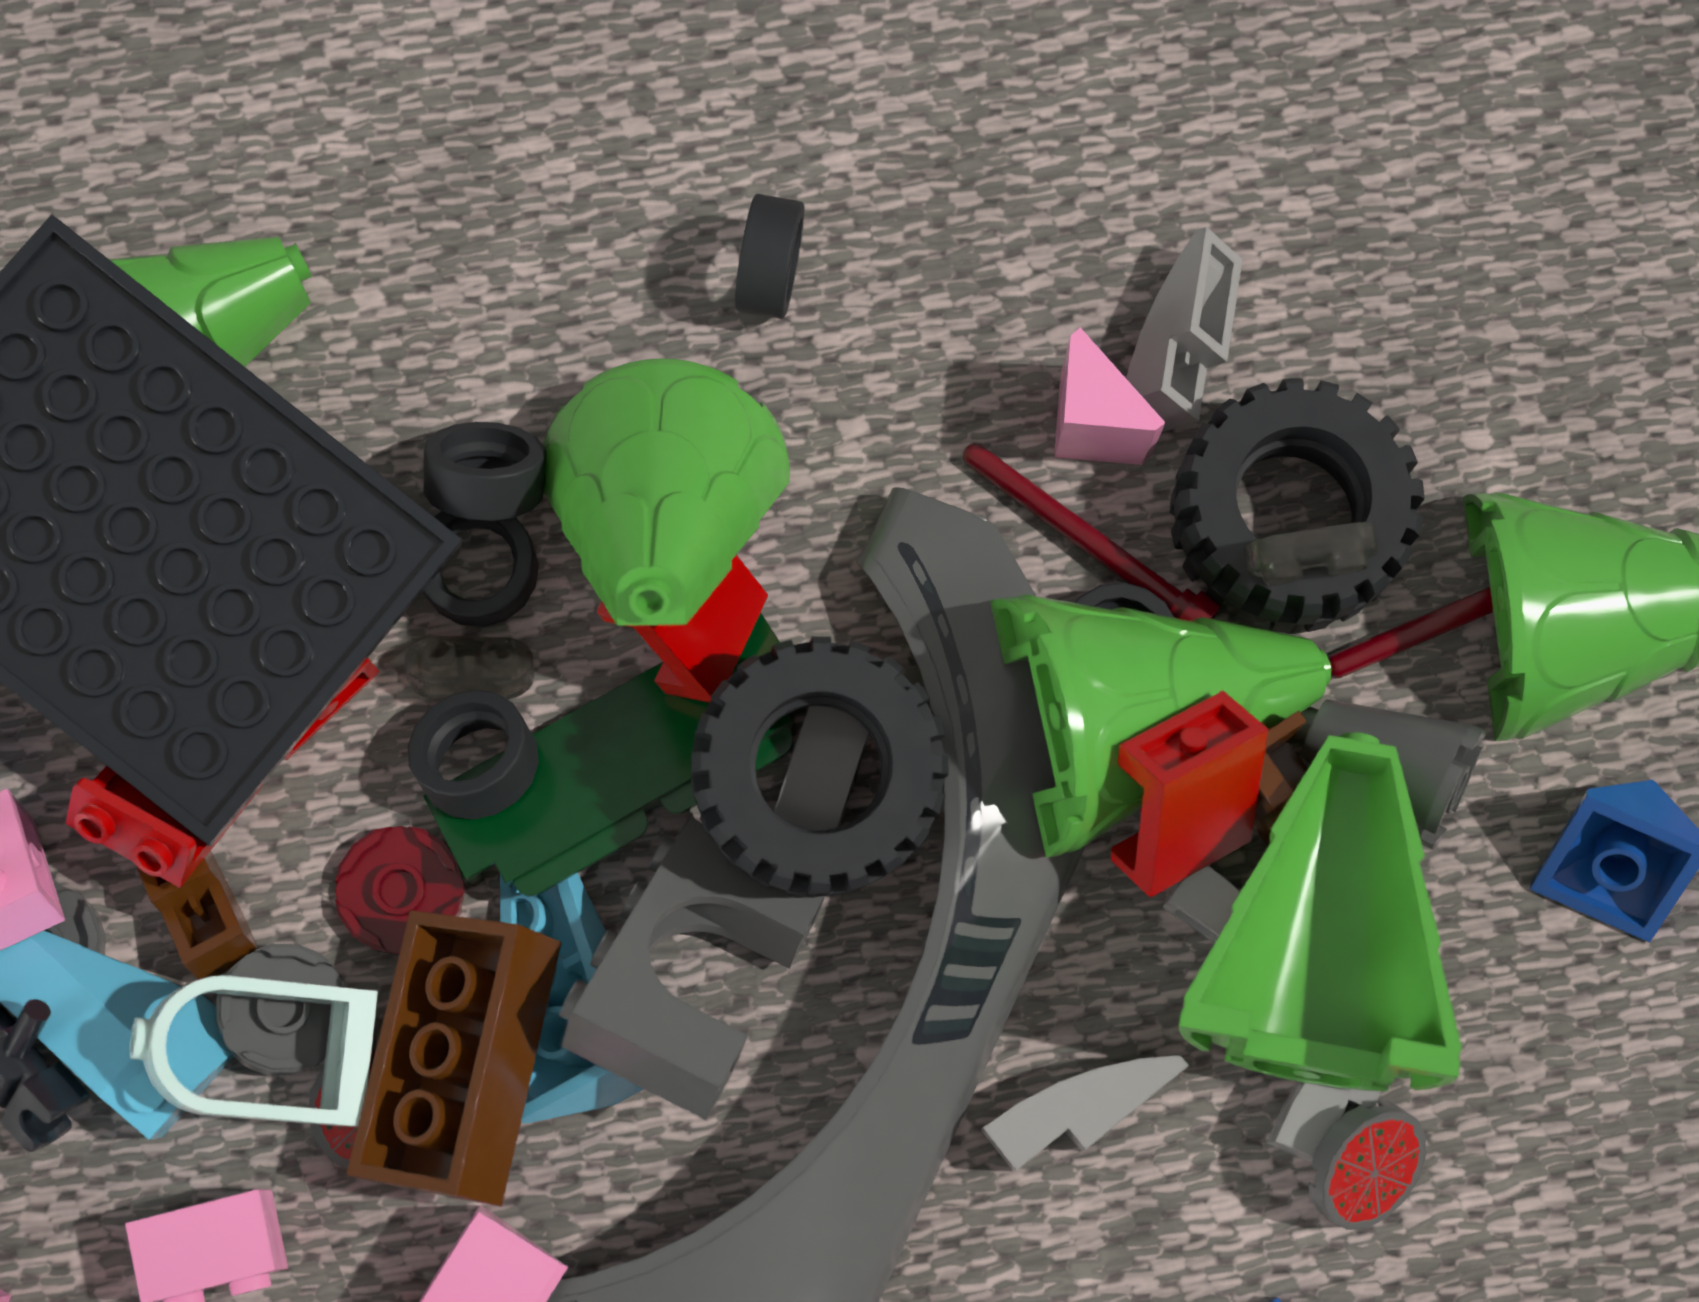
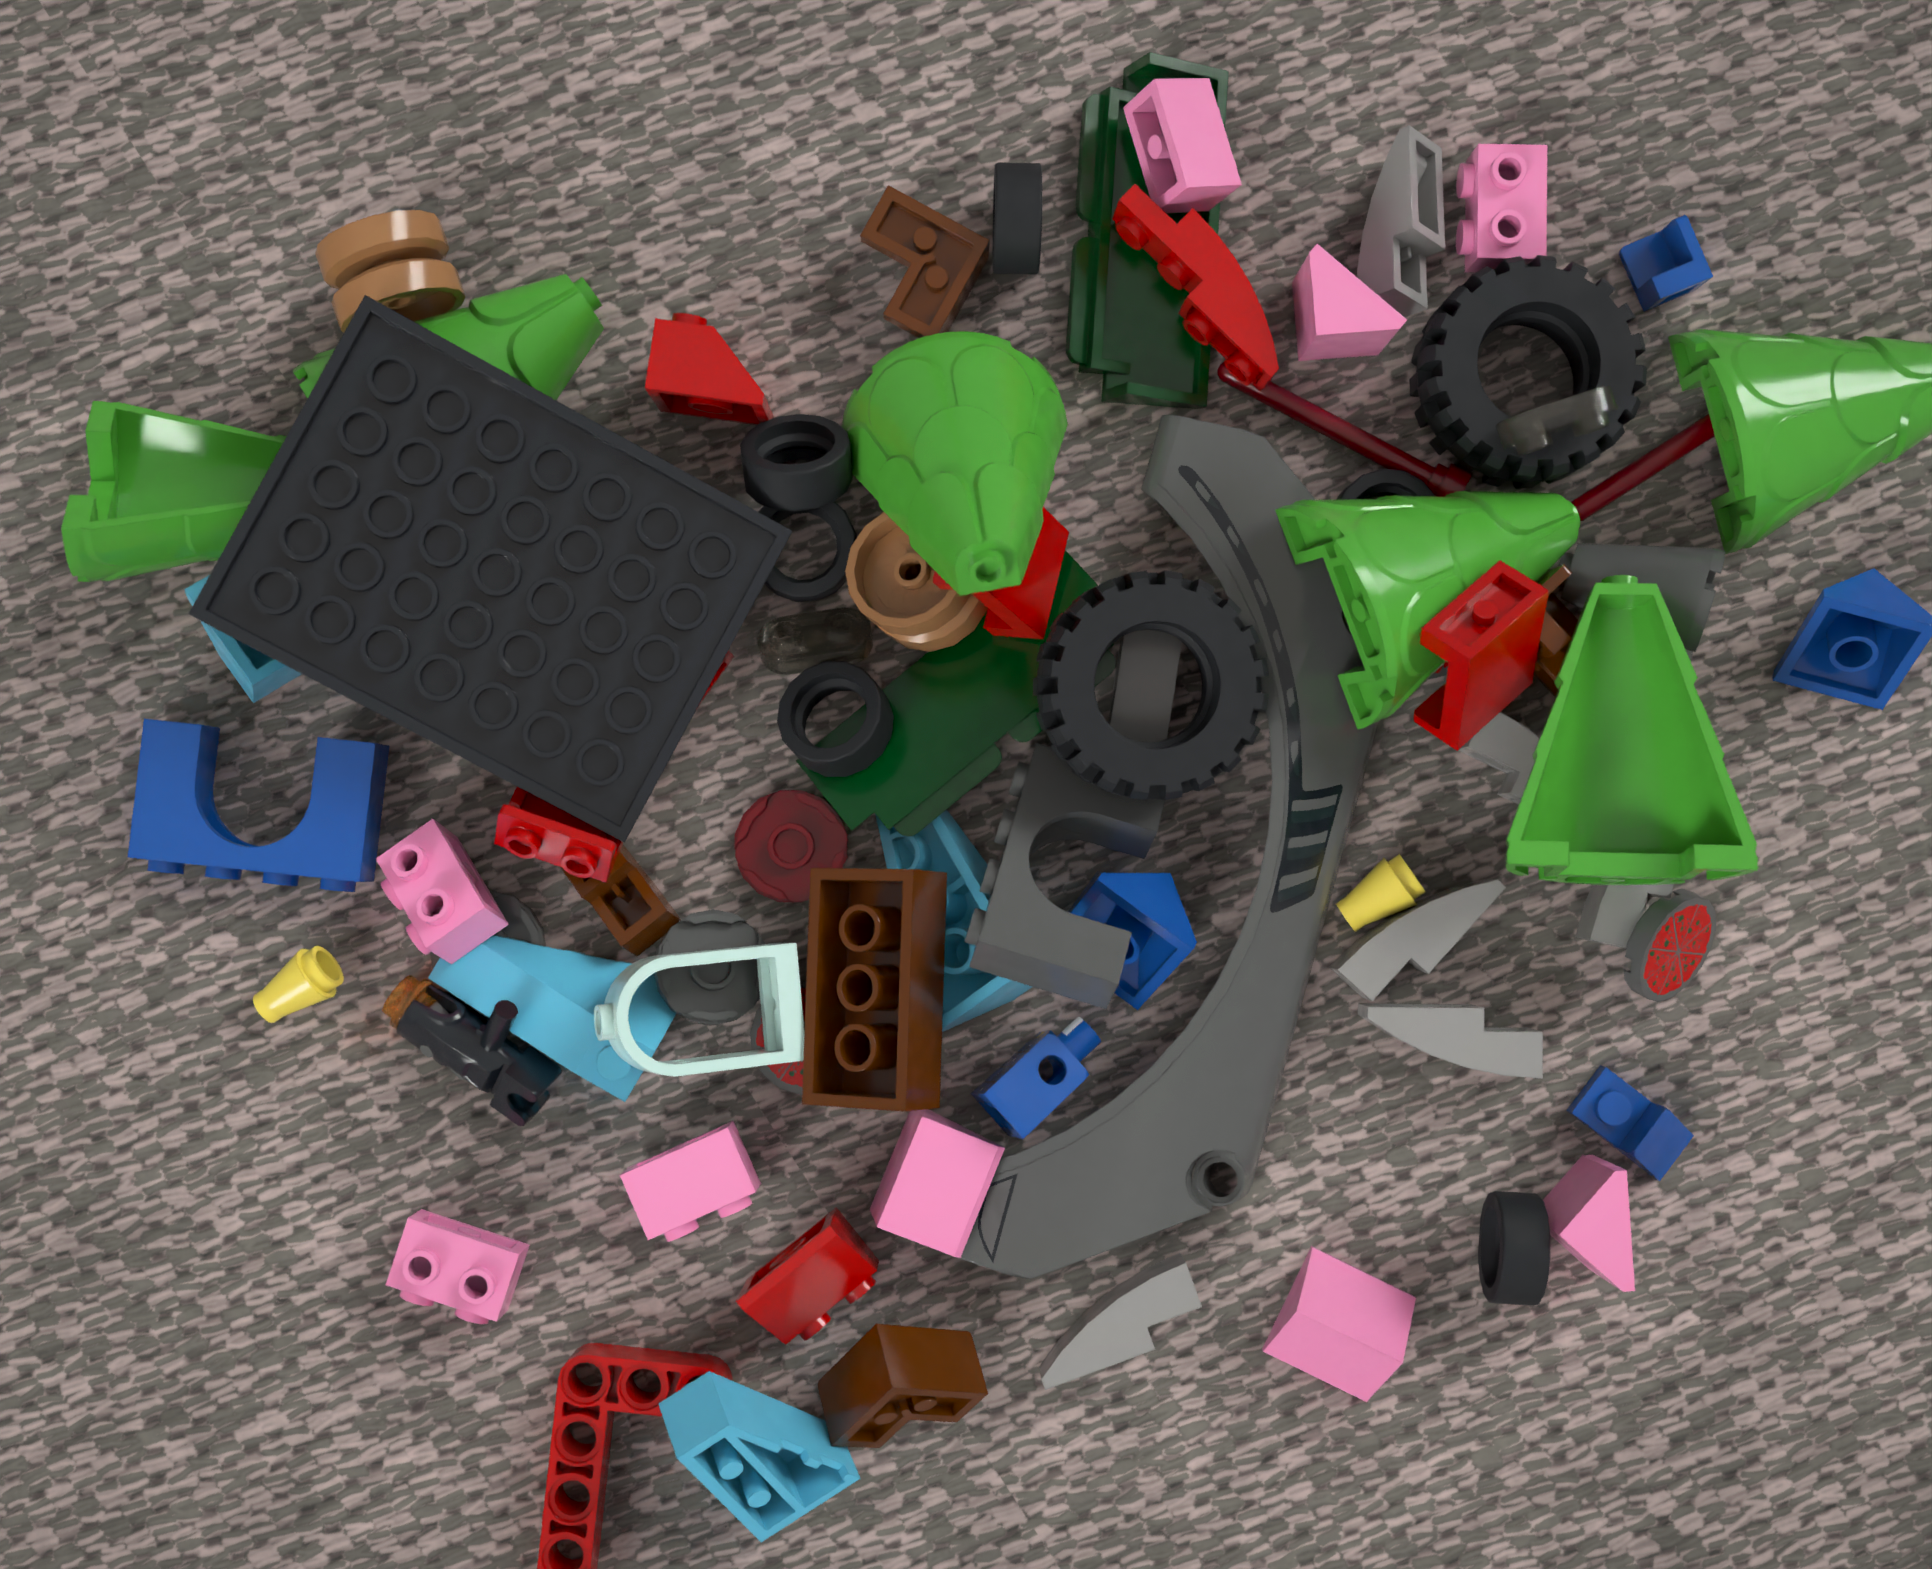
camera: 15 degrees left, 10 degrees up
(98, 190) = (393, 261): none -> medium nougat wheel
(394, 362) = (700, 375): none -> red slope
(561, 627) = (898, 593): none -> medium nougat wheel
(597, 1212) = (1018, 1095): none -> blue torso
(681, 284) = (940, 261): none -> reddish brown panel
(780, 1049) = (1158, 923): none -> blue slope
(922, 274) = (1119, 304): none -> dark green slope
(959, 209) = (1182, 144): none -> bright pink brick
(972, 372) = (1220, 297): none -> red slope
(1050, 1053) = (1381, 893): none -> light yellow cone
(1110, 1232) = (1459, 1036): none -> light grey slope
(1299, 325) = (1502, 204): none -> bright pink brick
(1467, 419) = (1665, 264): none -> blue panel

